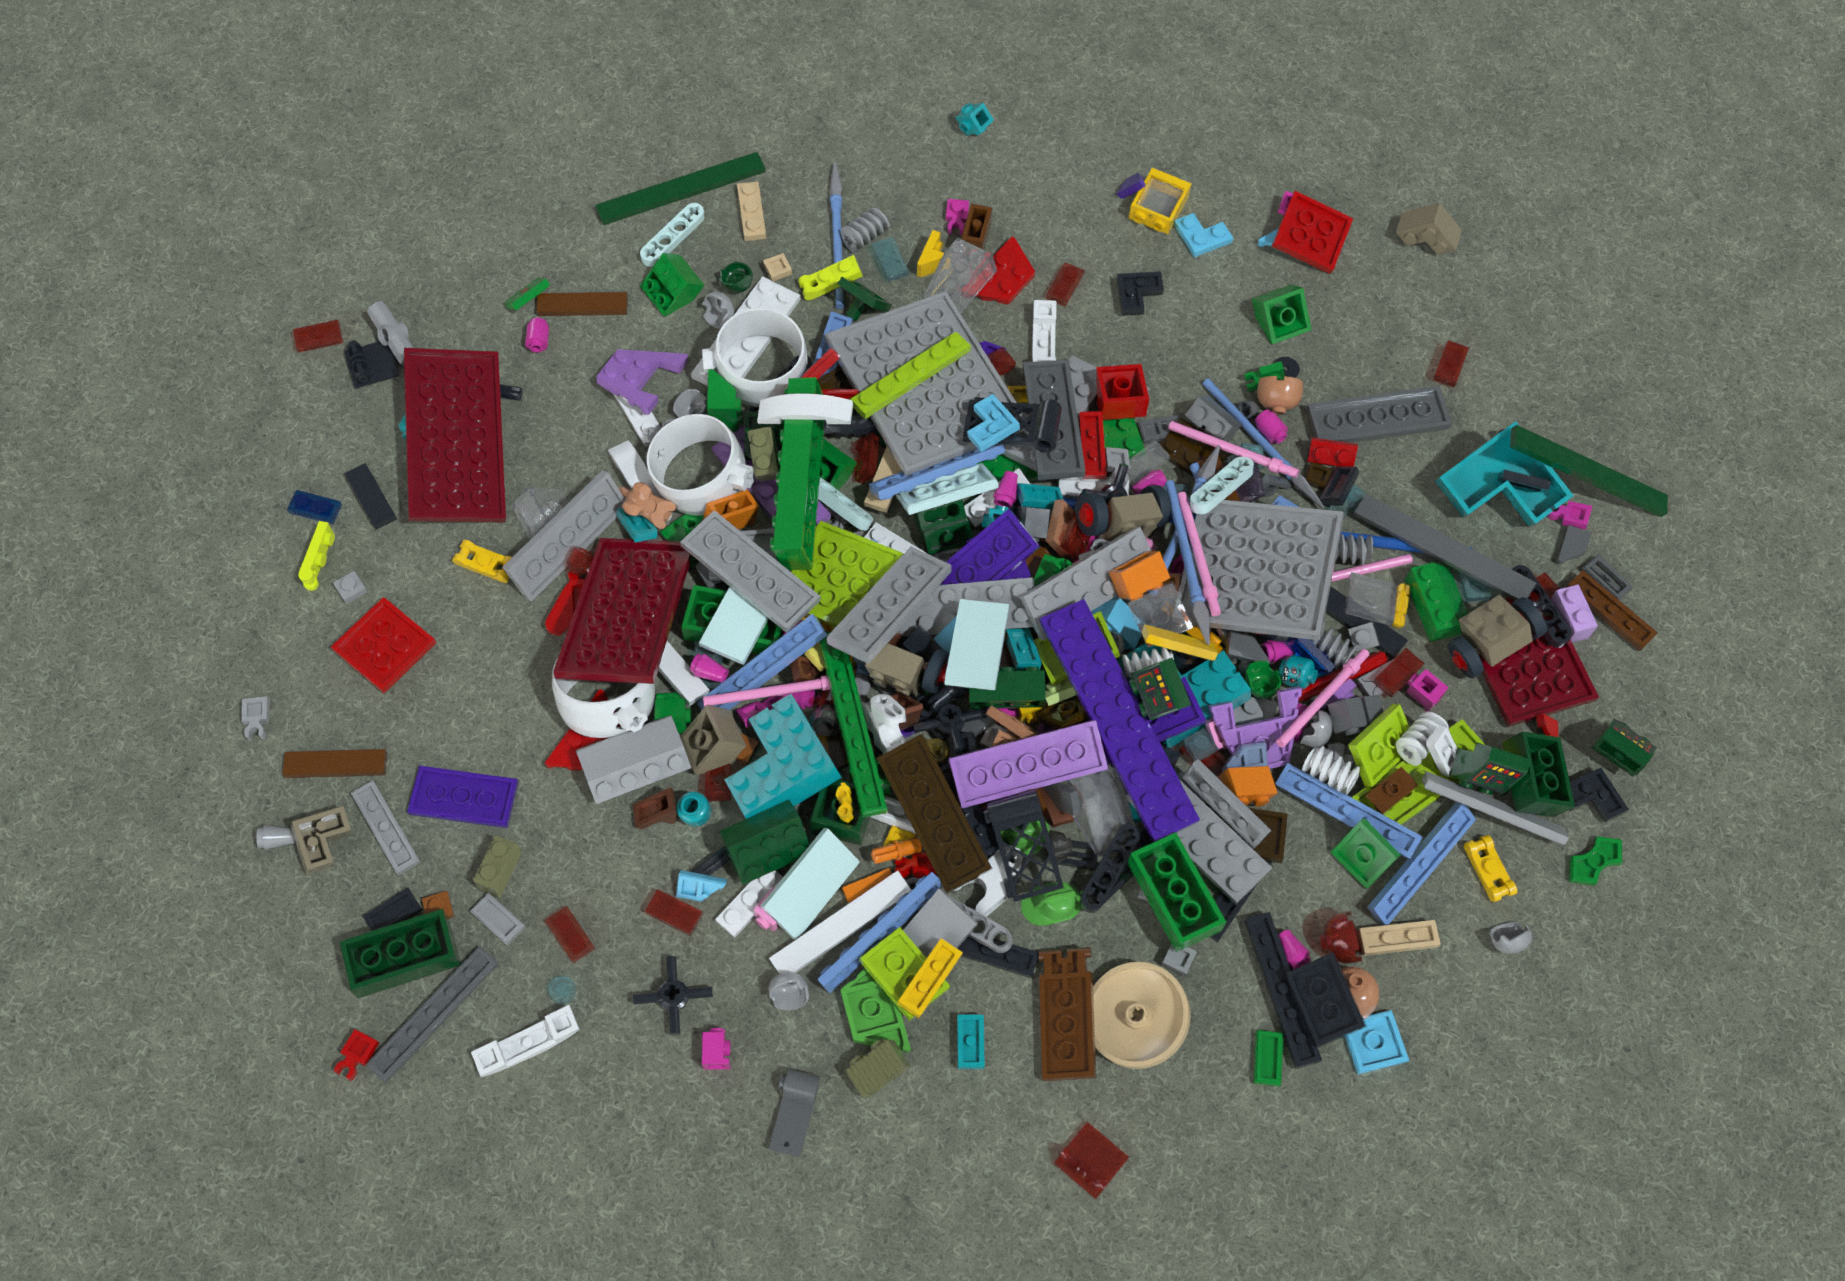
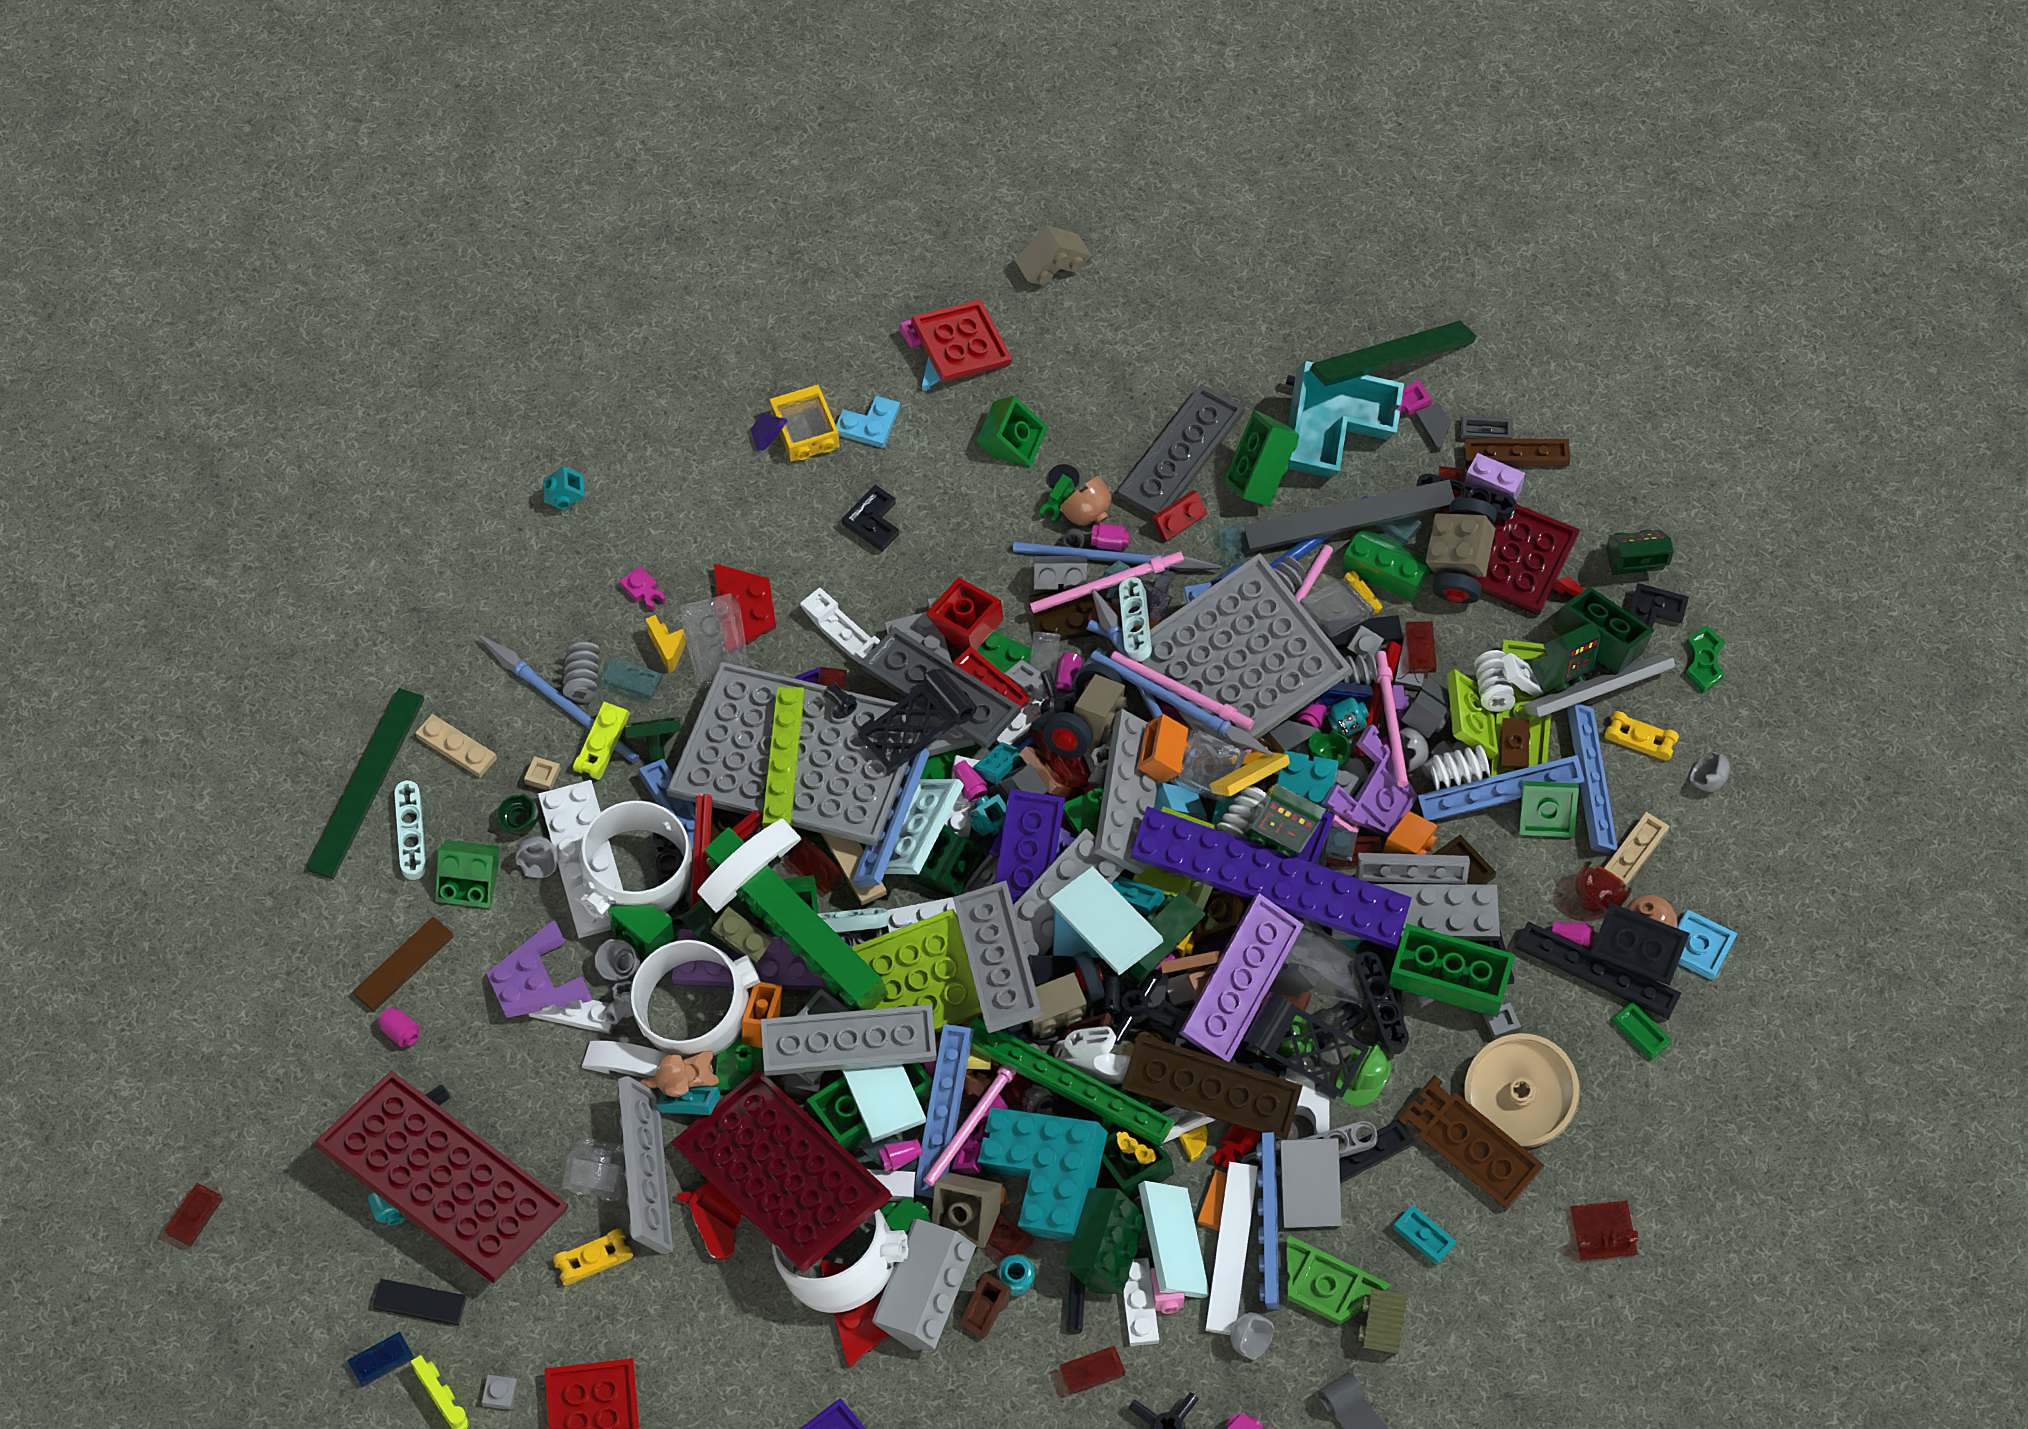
camera: 45 degrees left, 5 degrees down
(370, 363) = (273, 1192): black hinge -> none
(389, 330) = (265, 1146): light grey piece -> none
(527, 293) = (344, 1000): green tile -> none
(579, 560) = (679, 1175): clear red plate -> none
(697, 886) = (1087, 1331): medium azure tile -> none
(894, 966) = (1323, 1232): lime plate -> none
(896, 850) = (1208, 1148): orange axle -> none
(929, 978) = (1350, 1213): yellow plate -> none
(977, 225) = (679, 582): reddish brown brick -> none
(984, 373) = (845, 703): none -> black pin
(996, 426) = (911, 731): medium azure plate -> none
(1018, 393) = (880, 691): yellow tile -> none
(1065, 284) = (805, 567): clear red plate -> none
(1155, 429) = (1020, 622): dark grey tile -> none
(1248, 755) = (1386, 818): sand blue tile -> none
(1318, 475) = (1188, 544): dark brown tile -> none
(1339, 485) = (1214, 537): black tile -> none
(1422, 462) = (1261, 458): none -> green slope
(1426, 689) = (1454, 641): dark pink brick -> none
(1451, 363) = (1188, 357): clear red plate -> none
(1524, 481) = (1353, 405): black tile -> none

